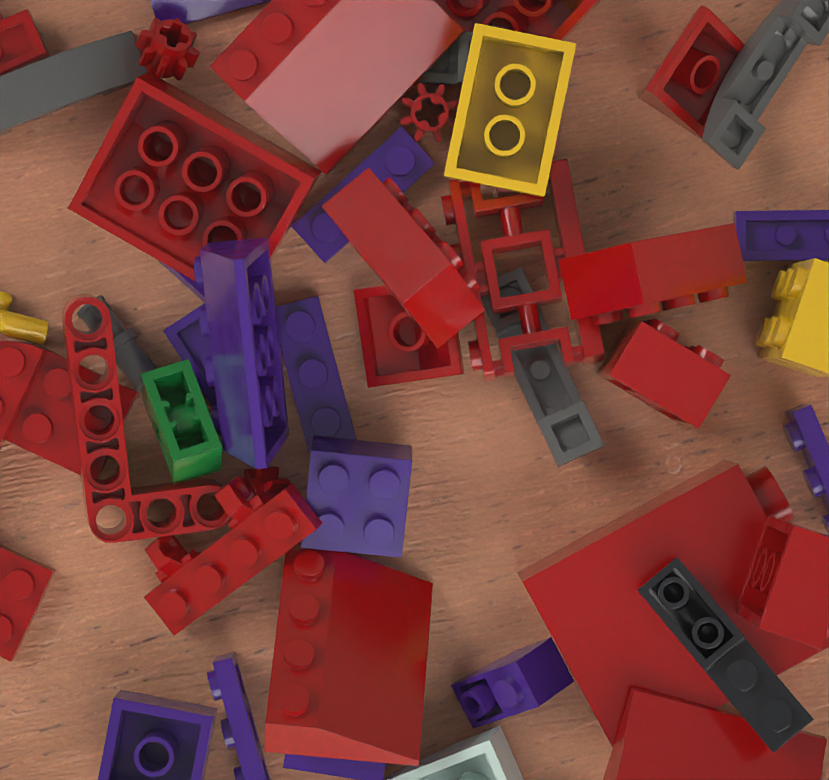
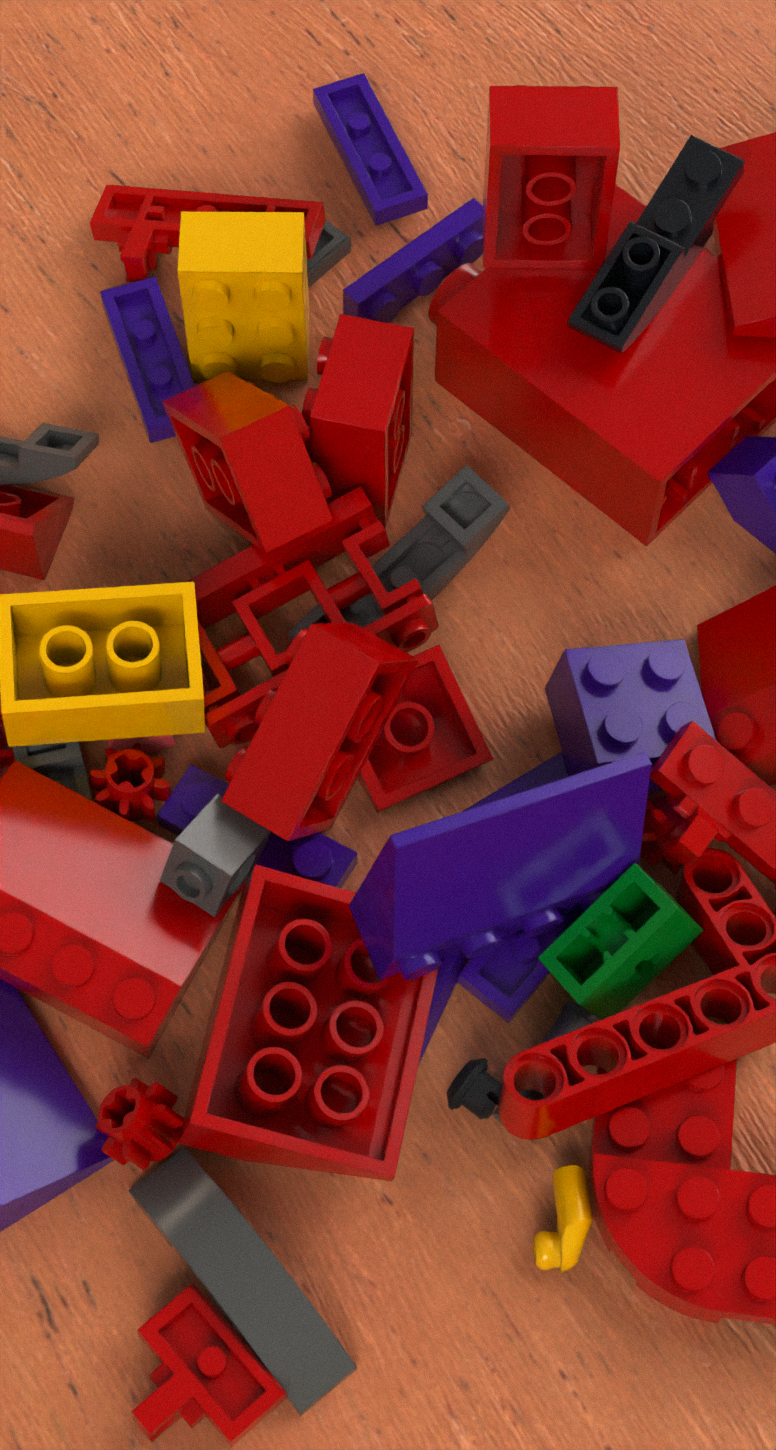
camera: 105 degrees left, 25 degrees down
(124, 288) = (475, 1089): none -> black piece
(336, 151) = (214, 856): none -> dark grey brick

